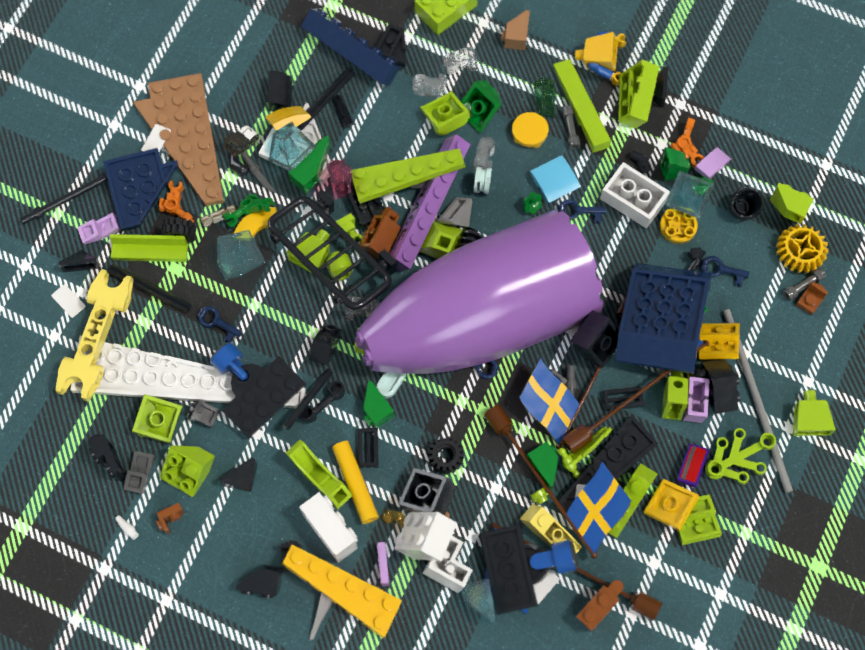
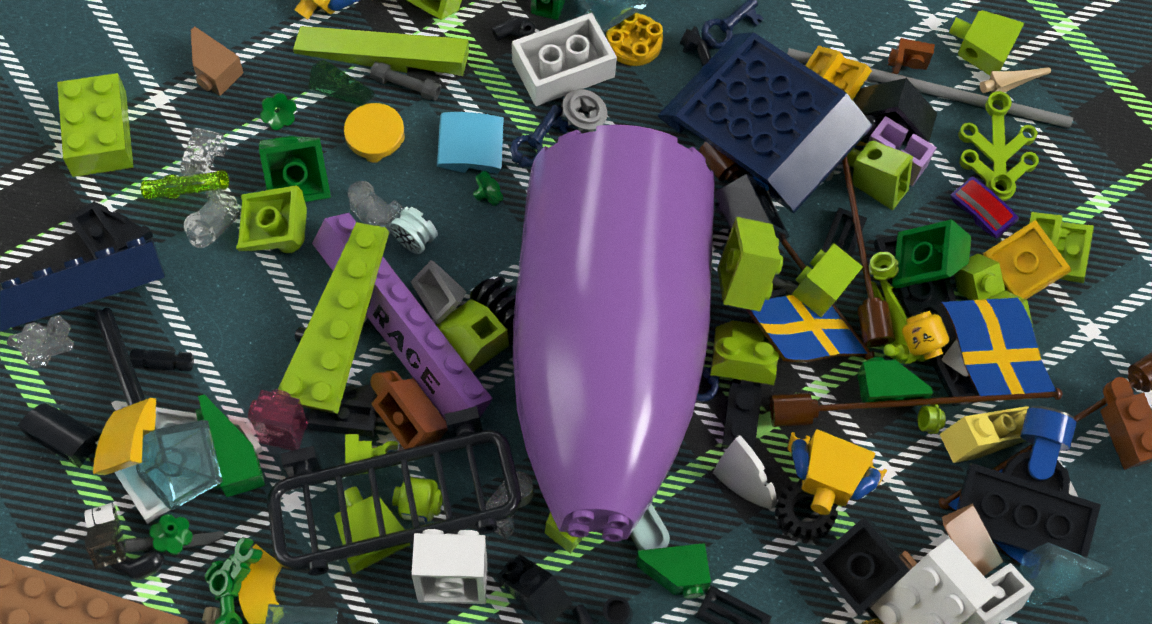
camera: 65 degrees left, 5 degrees down
(258, 172) = (172, 540): none -> green plant
(308, 296) = (450, 567): none -> white brick
(312, 48) = (30, 341): none -> clear hips
(435, 58) = (212, 181): none -> clear neon green pin
(445, 410) = (744, 474): none -> white brick
(471, 455) = (833, 469): none -> yellow torso
(475, 546) = (972, 538): none -> slope
(484, 396) = (742, 412): none -> black hinge
(510, 78) = (282, 115): none -> green plant
(512, 377) = (743, 353): none -> lime slope
(558, 349) = (749, 264): none -> lime brick
(582, 465) = (925, 335): none -> yellow head
(586, 399) = (827, 279): none -> lime brick
(613, 421) = (886, 261): none -> lime plate
(620, 223) = (589, 102): none -> light grey gear
(636, 446) = (931, 253): none -> green slope
(771, 377) = (911, 54): none -> dark orange bracket
(791, 440) = (1008, 80): none -> tan piece

